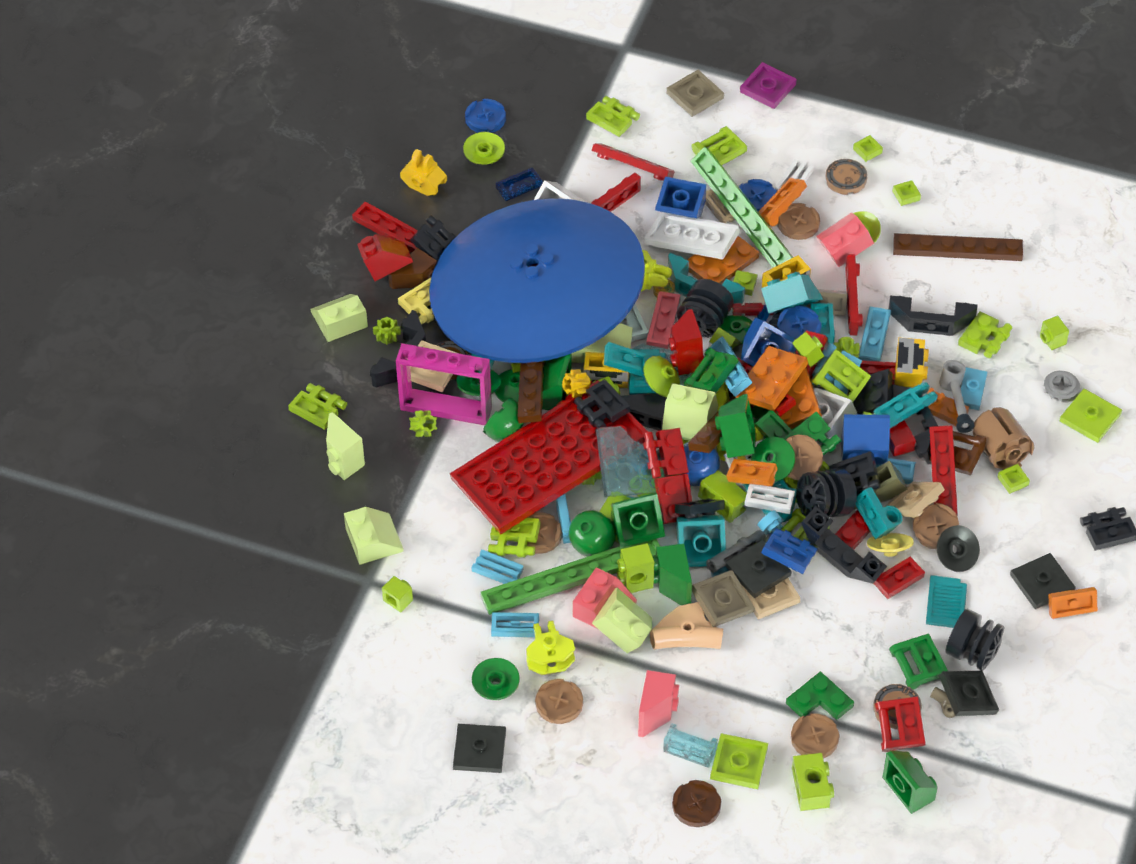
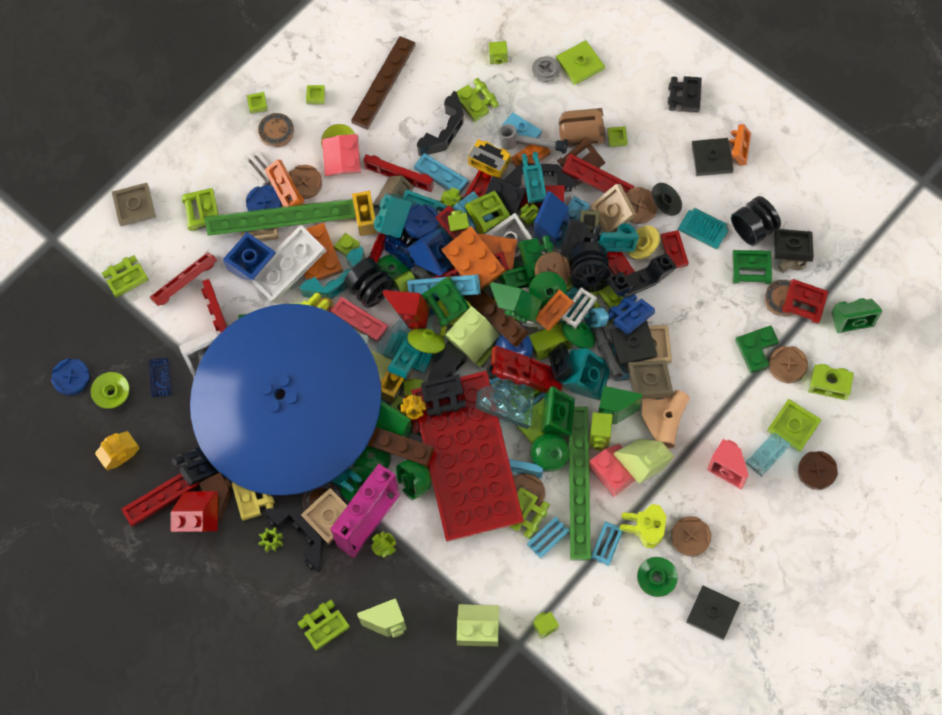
camera: 65 degrees left, 15 degrees up
(340, 317) = (233, 573): yellowish green slope -> none
(738, 516) = (581, 336): none -> green dish
(768, 85) = (154, 147): magenta plate -> none

